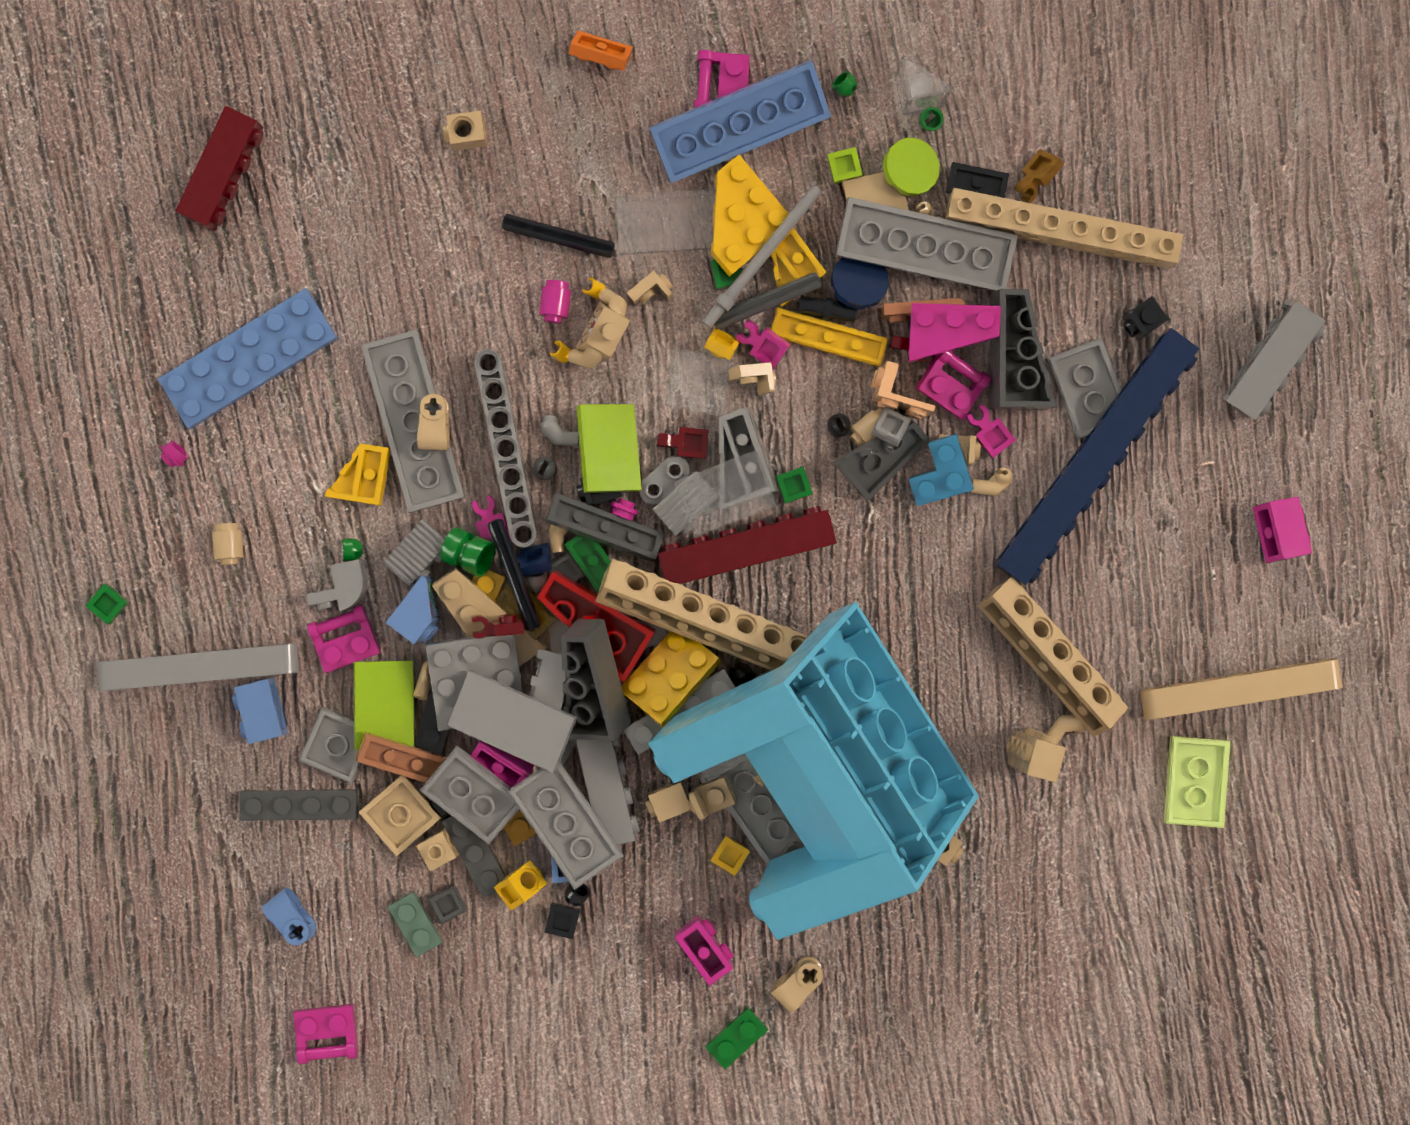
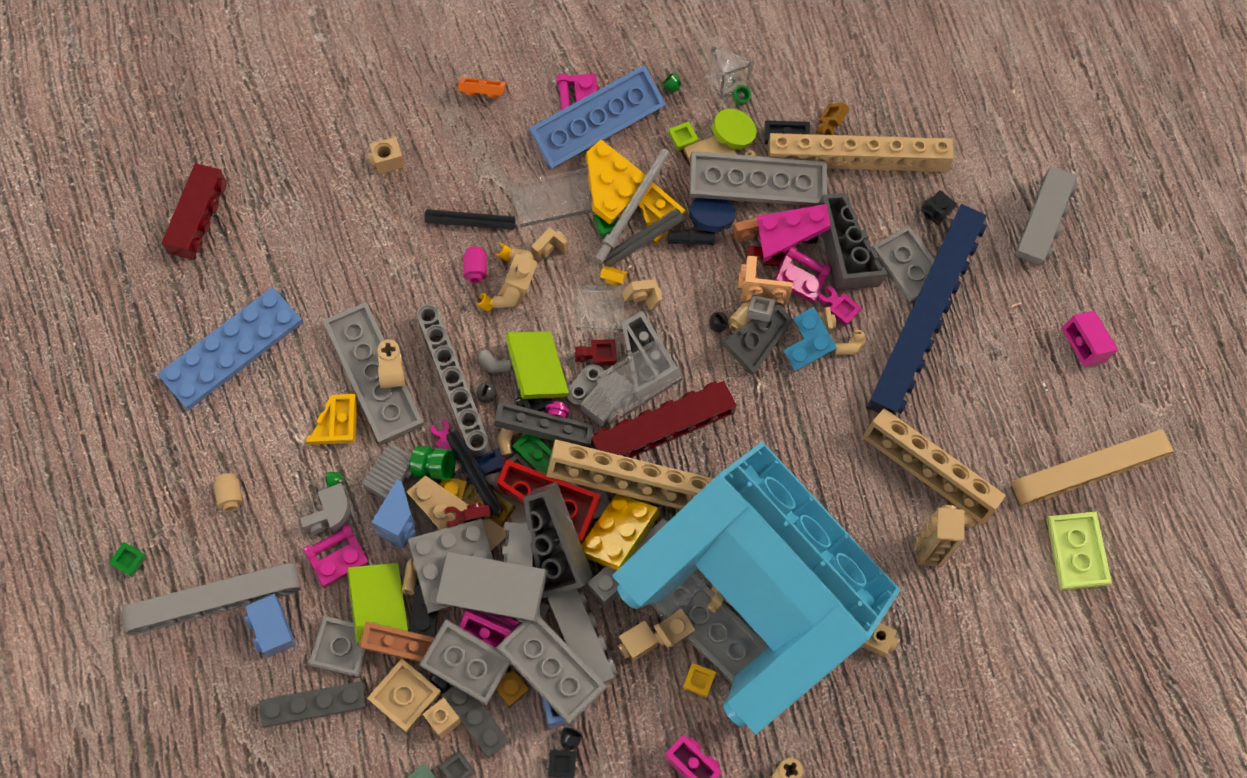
camera: 10 degrees left, 20 degrees down
(173, 454) = (175, 430): dark pink plate -> none
(513, 891) = (520, 736): yellow brick -> none
(767, 345) = (648, 269): dark pink plate -> none
(794, 485) = (692, 371): green plate -> none
(829, 337) = (696, 259): yellow tile -> none

